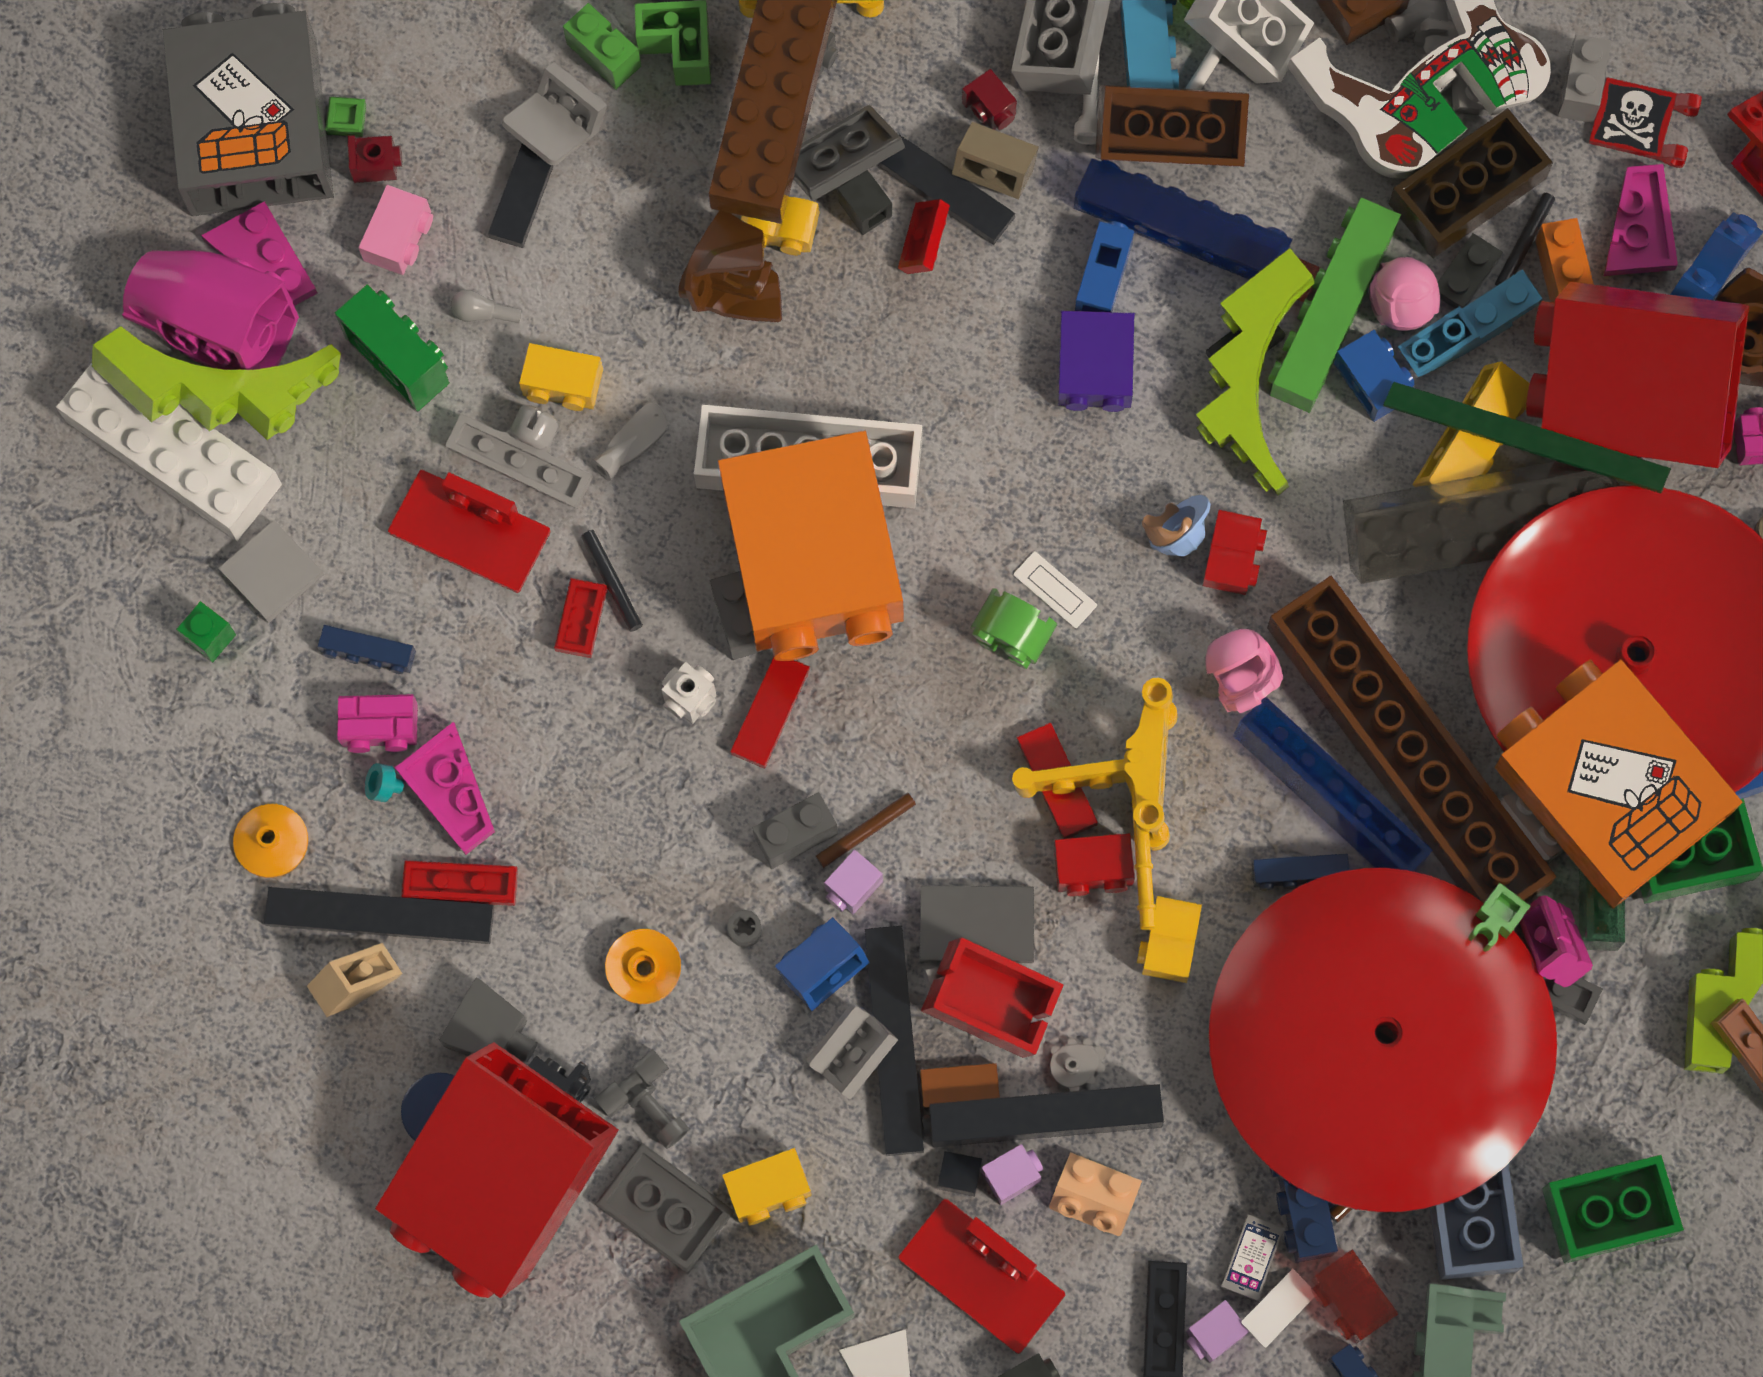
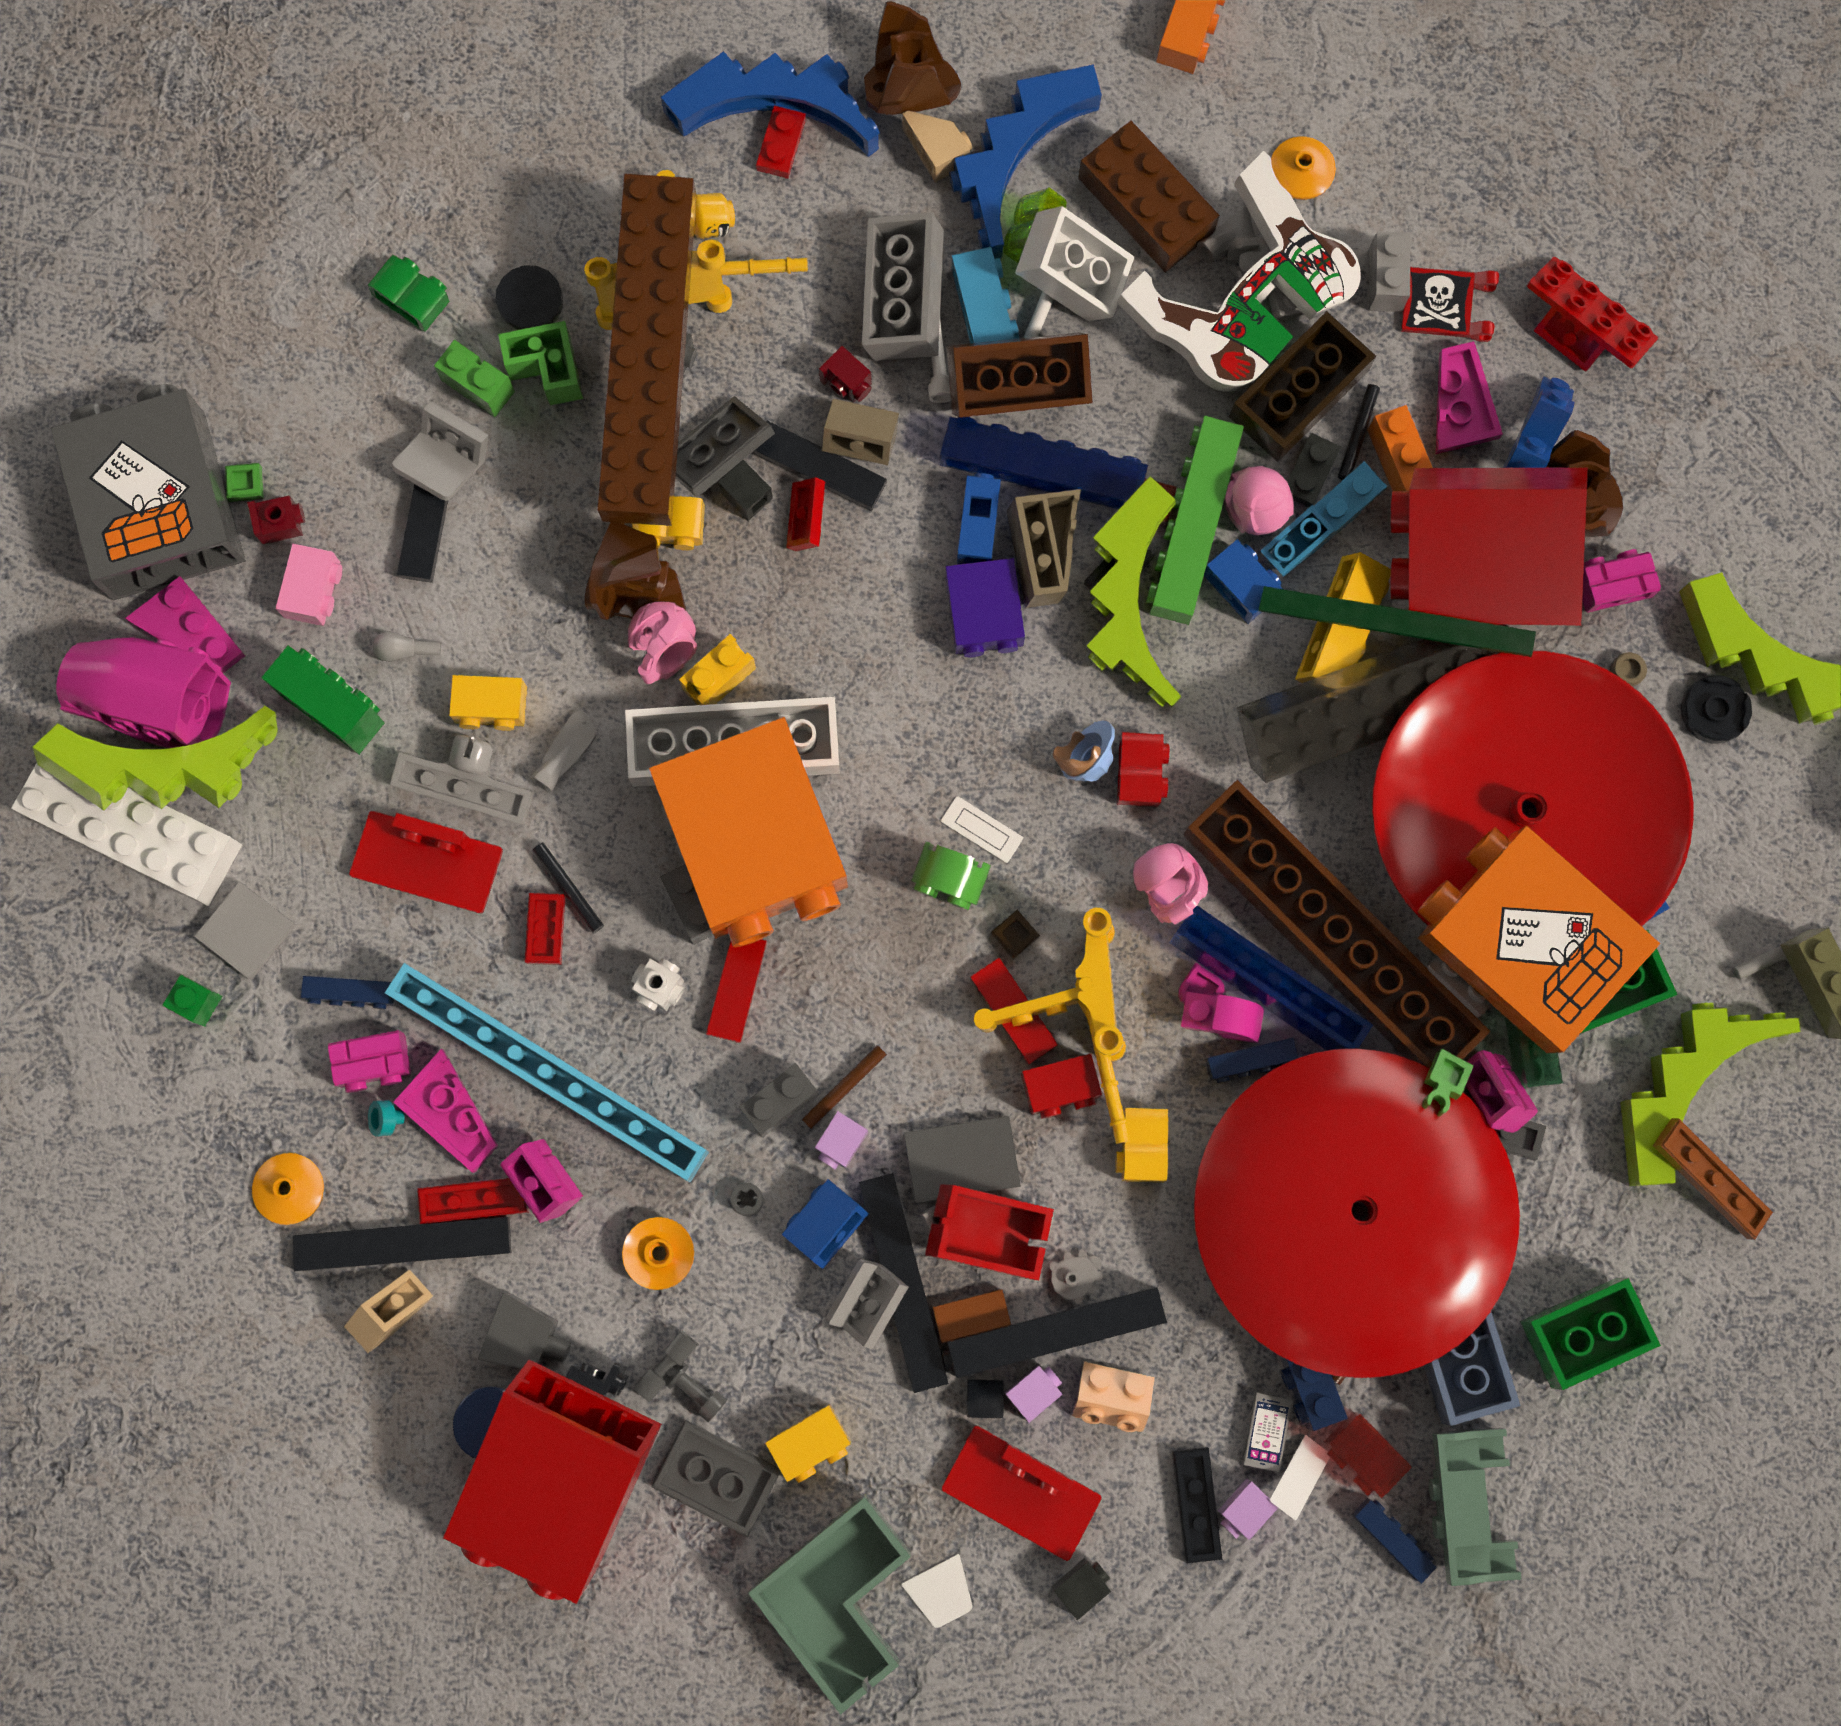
camera: 15 degrees left, 5 degrees up
(534, 871) = (541, 1180): none -> dark pink brick
(560, 763) = (547, 1072): none -> medium azure brick
(756, 330) = (662, 629): none -> bright pink helmet
(805, 383) = (717, 672): none -> yellow brick
(1072, 702) = (1015, 934): none -> dark brown tile
(1167, 303) = (1042, 544): none -> dark tan wedge
(1258, 787) = (1200, 981): none -> dark pink tile
(1280, 817) = (1223, 1015): none -> dark pink brick

